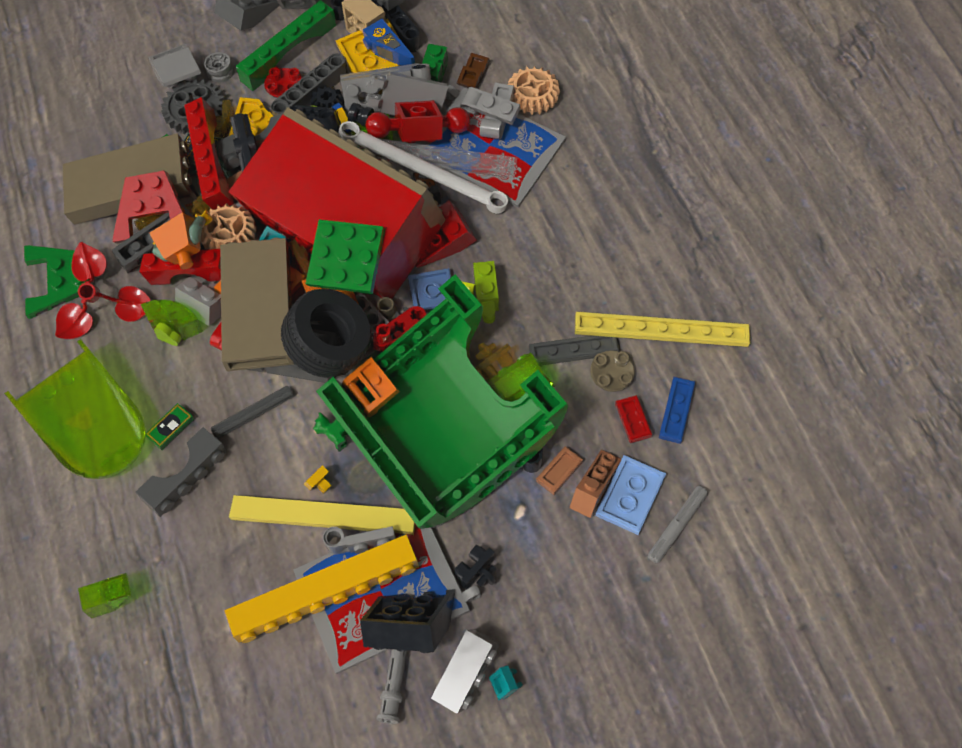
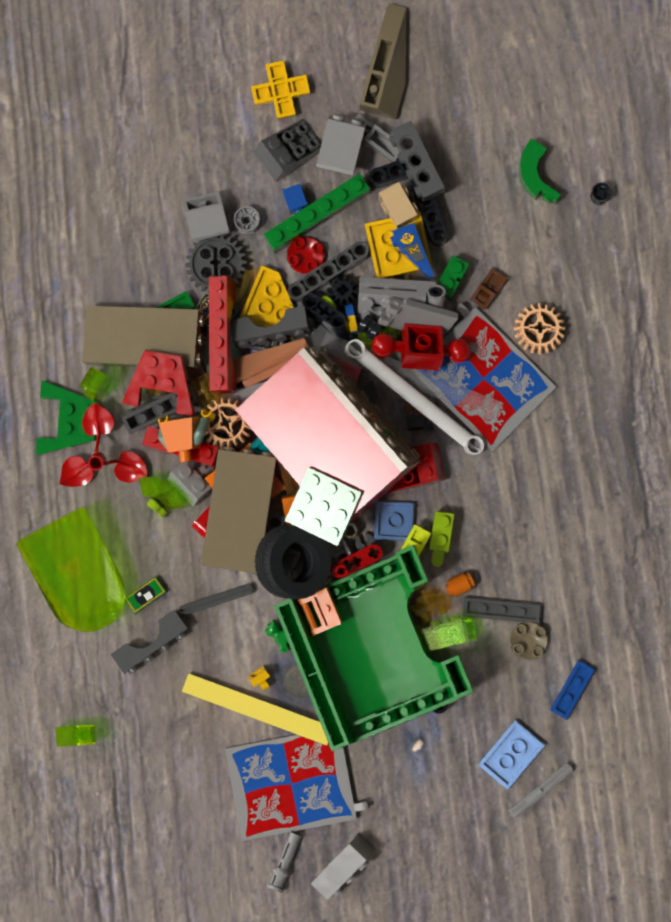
camera: 15 degrees right, 20 degrees up
(79, 227) = (94, 384): none -> clear neon green brick
(244, 140) = (257, 340): black piece -> none
(259, 35) = (294, 198): none -> blue brick
(321, 589) = (246, 774): yellow brick -> none
(359, 542) = (283, 744): light grey plate -> none
(407, 622) = (307, 819): black wedge -> none
(470, 575) = (377, 780): black hips -> none
(490, 105) = (492, 343): light grey plate -> none
(490, 126) = (498, 349): light grey plate -> none
(504, 682) = (369, 883): teal tile -> none
(520, 332) = (459, 584): none -> orange brick
(559, 470) = (459, 718): nougat tile -> none
(594, 483) = (485, 738): nougat slope -> none
(633, 419) = (532, 690): red plate -> none
(662, 329) = (582, 613): light yellow tile -> none

